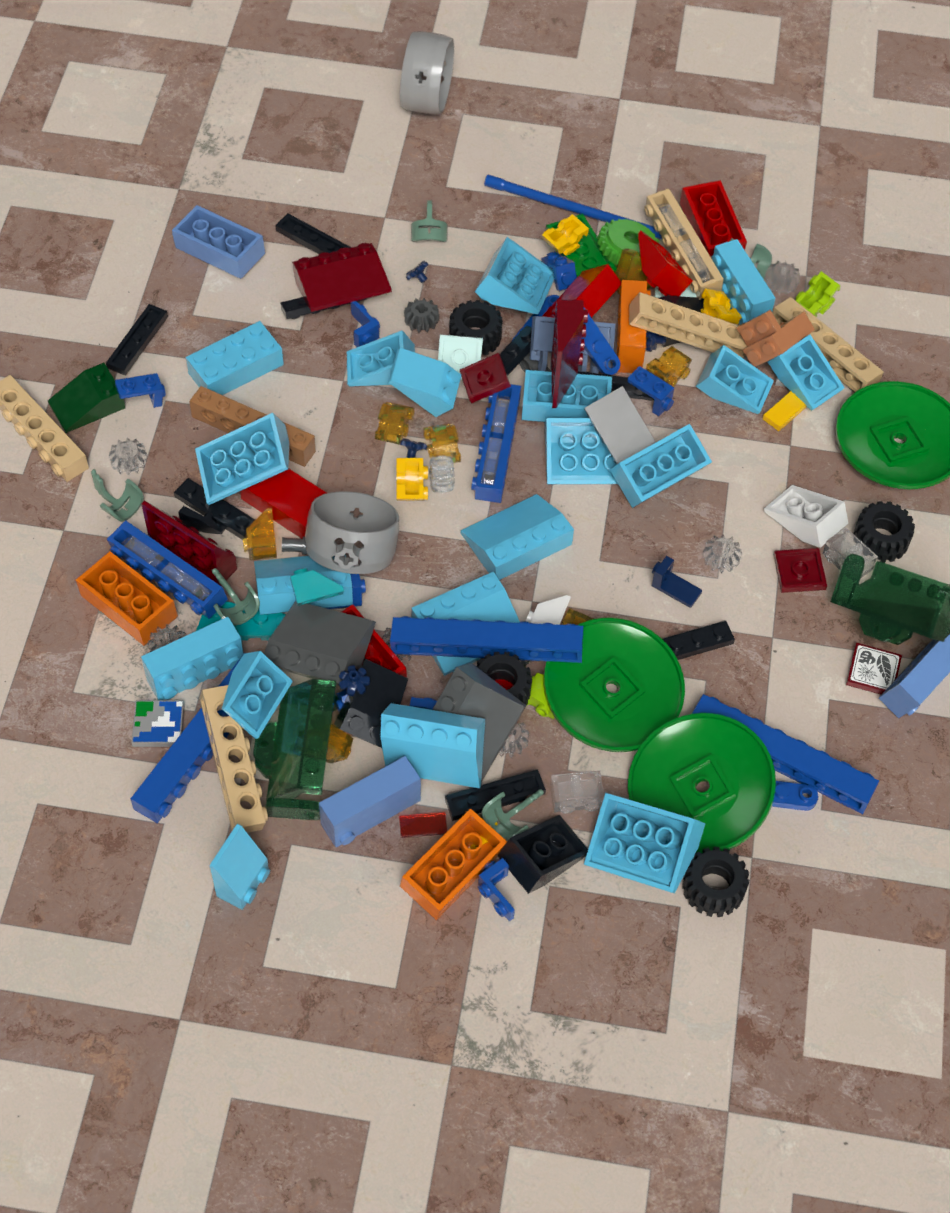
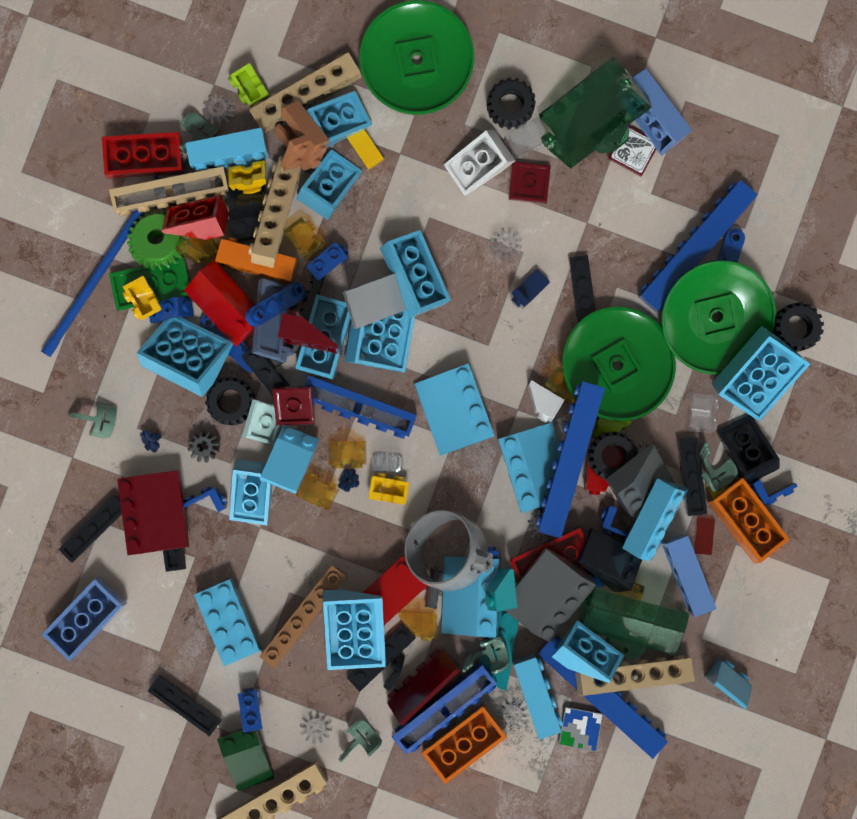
camera: 75 degrees left, 30 degrees up
(354, 680) = (595, 574): dark blue plant -> none

